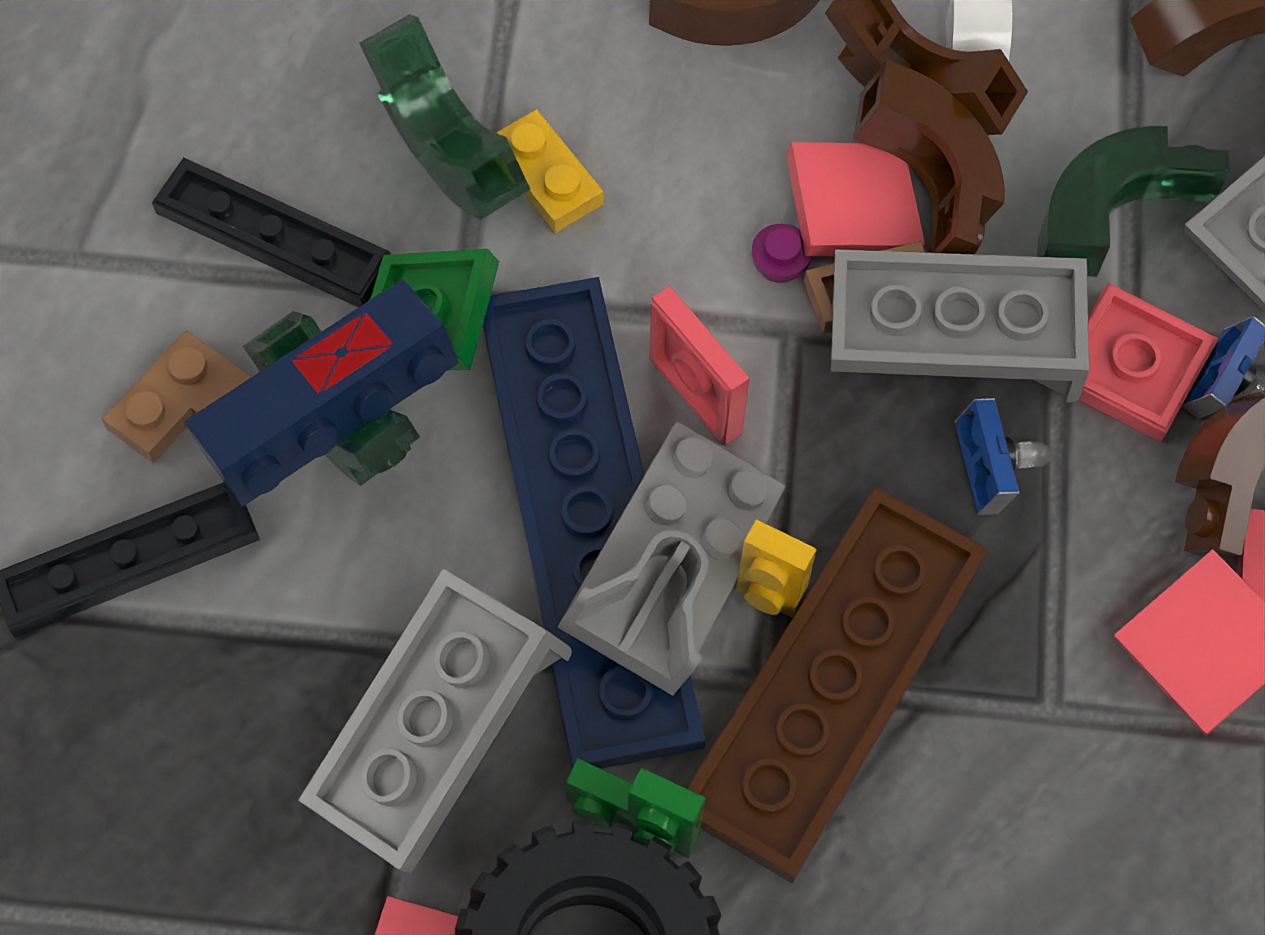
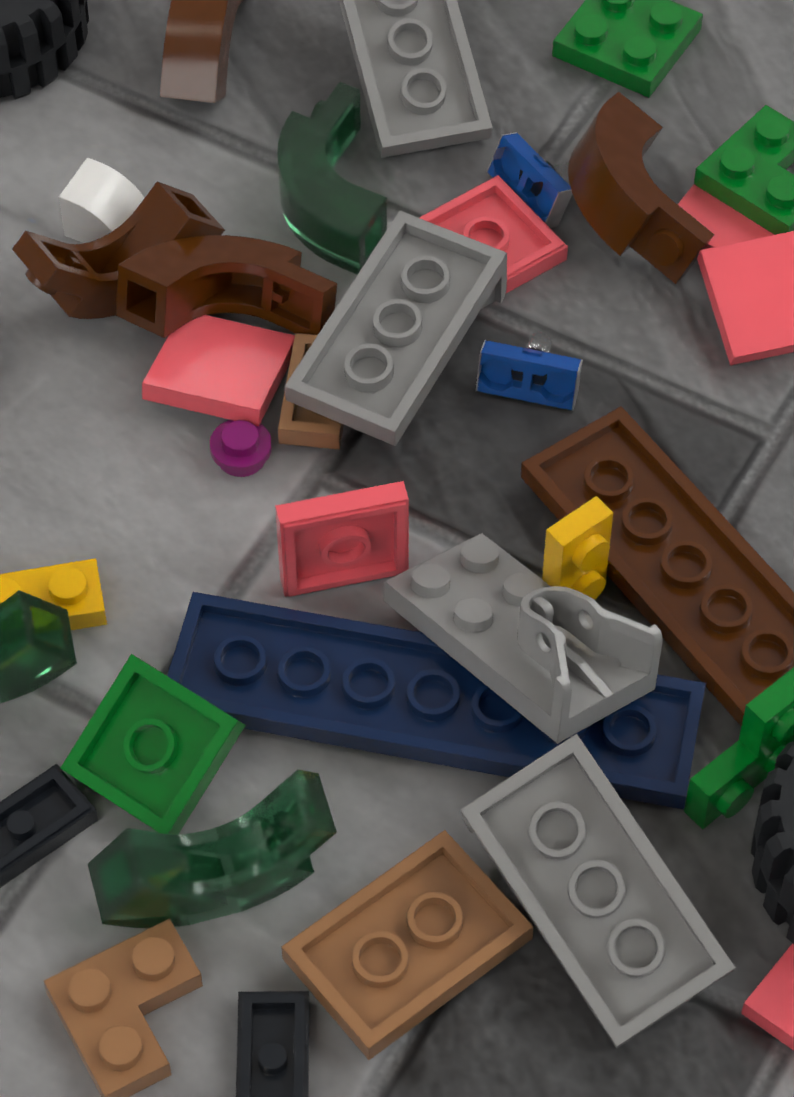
camera: 65 degrees left, 10 degrees down
(322, 392) = (225, 843): dark blue brick -> none
(325, 587) = (407, 944): none -> medium nougat plate

